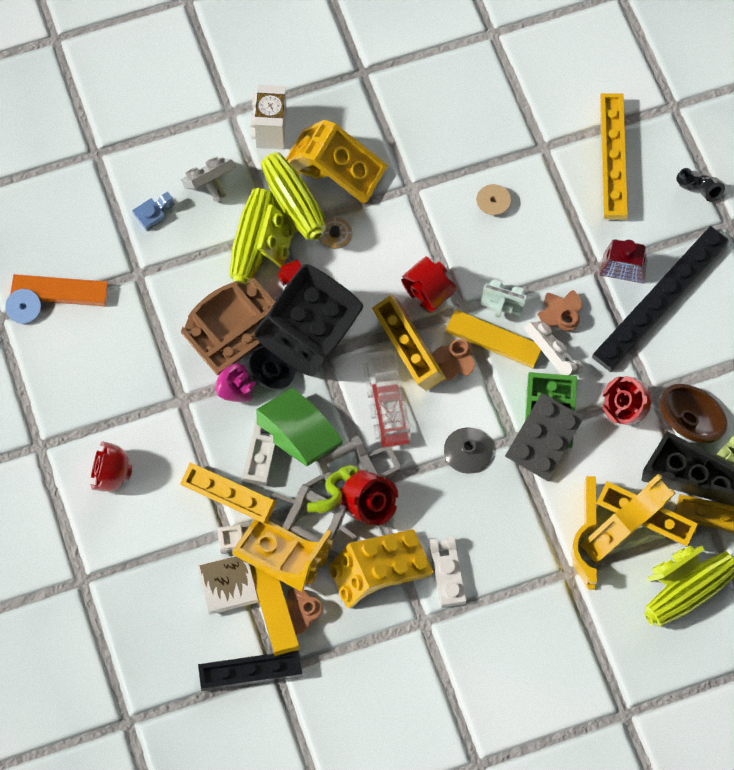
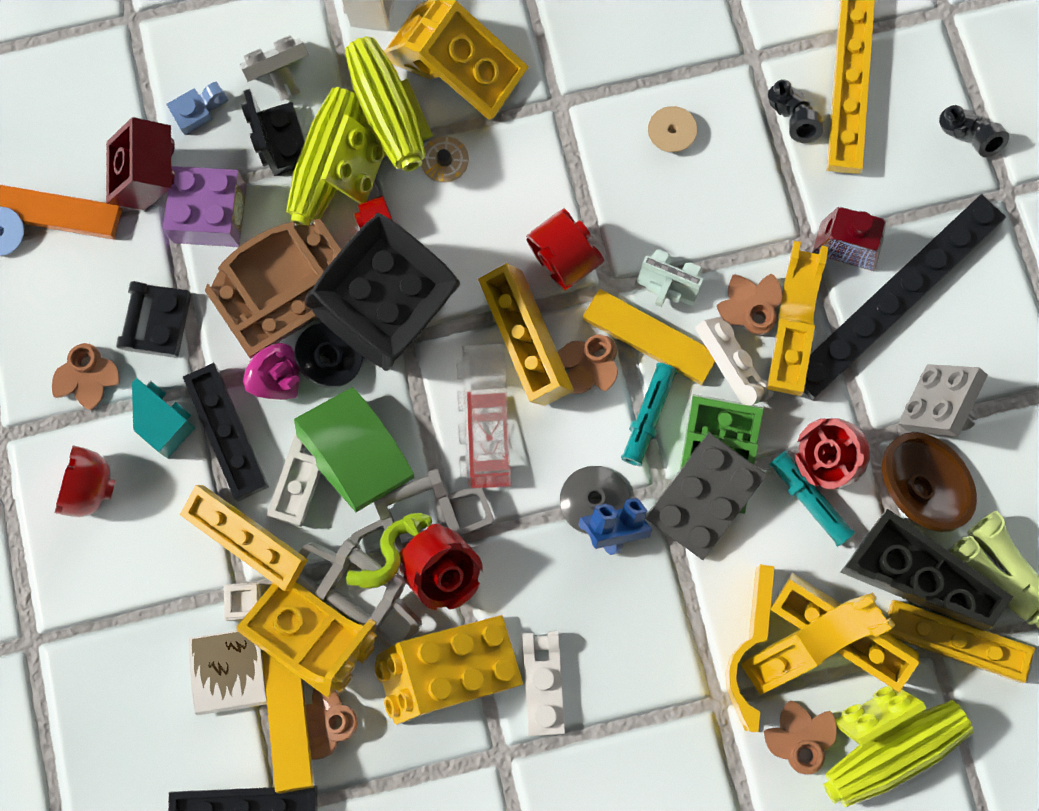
camera: 15 degrees right, 10 degrees up
(99, 402) = (85, 381): none -> nougat plate
(122, 251) = (139, 164): none -> dark red brick
(150, 357) = (164, 324): none -> black plate
(157, 423) = (156, 421): none -> teal slope
(171, 277) = (205, 207): none -> medium lavender brick
(205, 427) = (225, 432): none -> black plate
(216, 225) = (275, 134): none -> black bracket
(485, 464) = (614, 527): none -> blue hips
(496, 398) = (644, 427): none -> teal pin
(584, 188) = (805, 123): none -> black arm
(593, 318) = (796, 321): none -> yellow piece
(617, 434) = (812, 499): none -> teal pin
(624, 586) = (800, 732): none -> nougat plate
(698, 360) = (943, 400): none -> light grey plate

